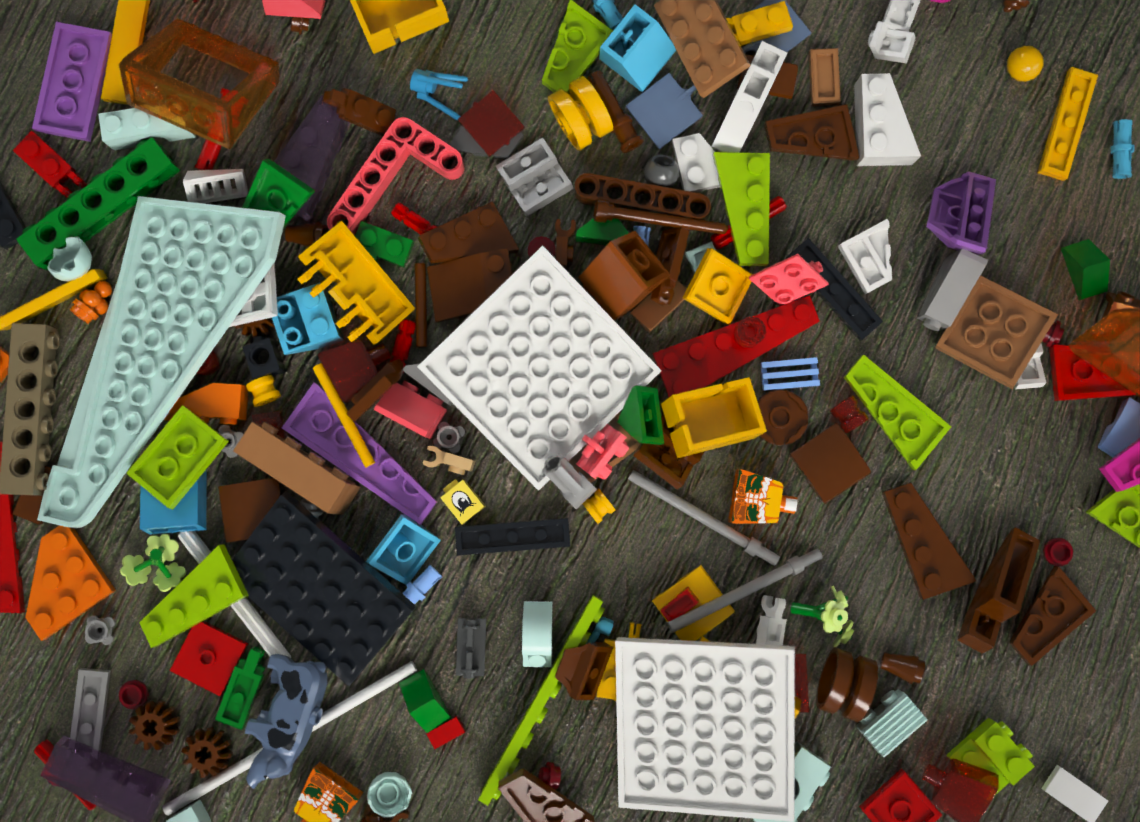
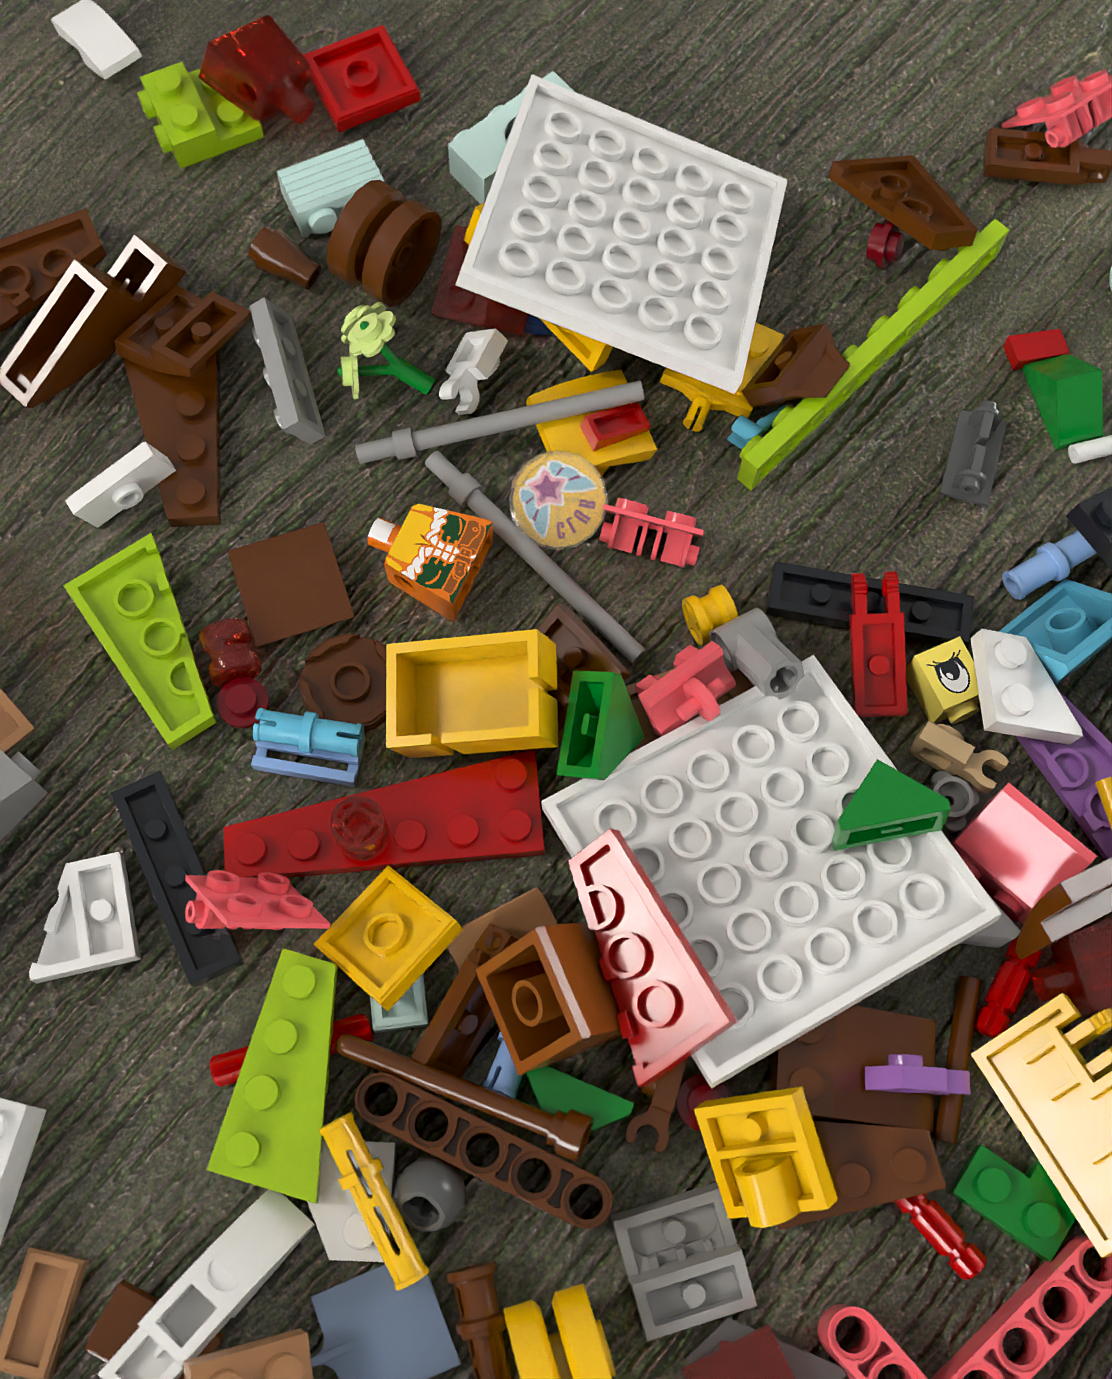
camera: 170 degrees left, 15 degrees down
(425, 501) = (1017, 690): none -> white wing
(445, 281) = (909, 1075): none -> medium lavender plate
(486, 404) = (889, 809): none -> green slope
(503, 506) = (877, 650): none -> red hinge
(507, 225) = (766, 1156): none -> yellow plate
(537, 634) = (862, 444): light aqua brick -> none
(581, 288) = (656, 977): none -> wing
(654, 548) = (631, 515): none -> coral hinge
(694, 167) = (403, 1264): none -> yellow pin
(699, 551) = (558, 500): none -> clear tile
(792, 379) = (308, 732): none -> medium azure pin
(814, 134) = (103, 1193): reddish brown wing -> none
(833, 390) = (240, 701): none -> dark red plate
(876, 591) = (286, 372): none -> light grey plate
(942, 491) = (120, 485): none -> white plate
(944, 597) = (181, 331): none -> reddish brown slope

